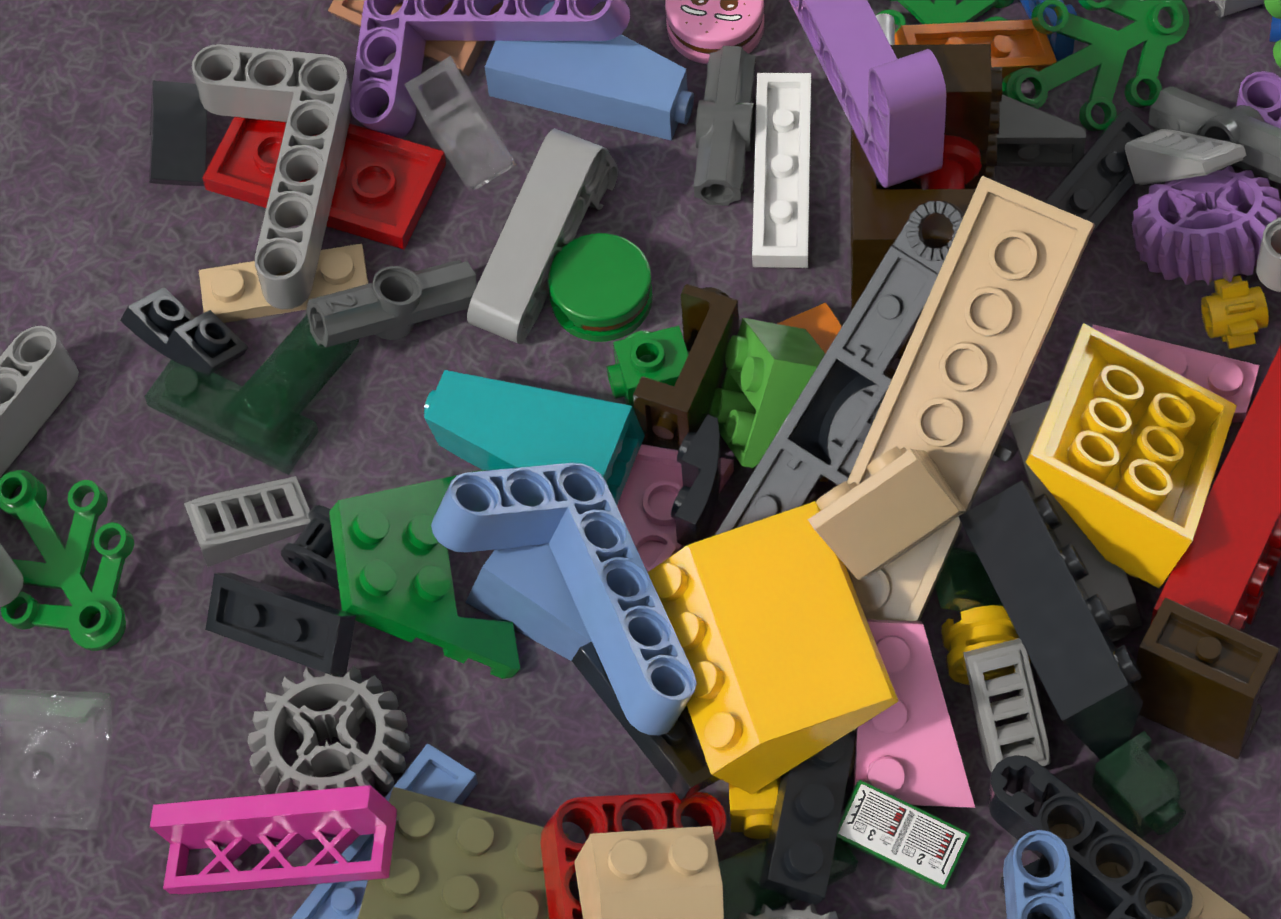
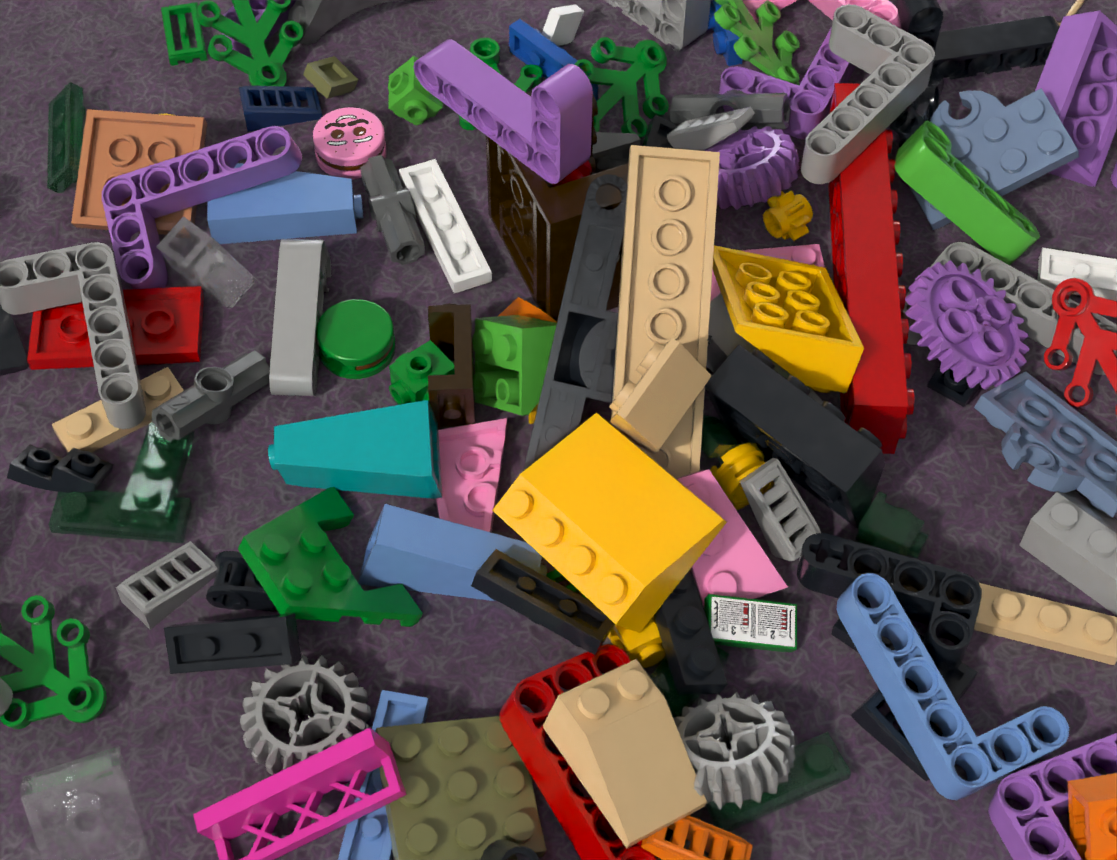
camera: 30 degrees left, 5 degrees down
(600, 564) = (465, 513): medium blue beam -> none
(701, 482) = (495, 436): black slope -> none
(1202, 677) = (914, 435): dark brown panel -> none

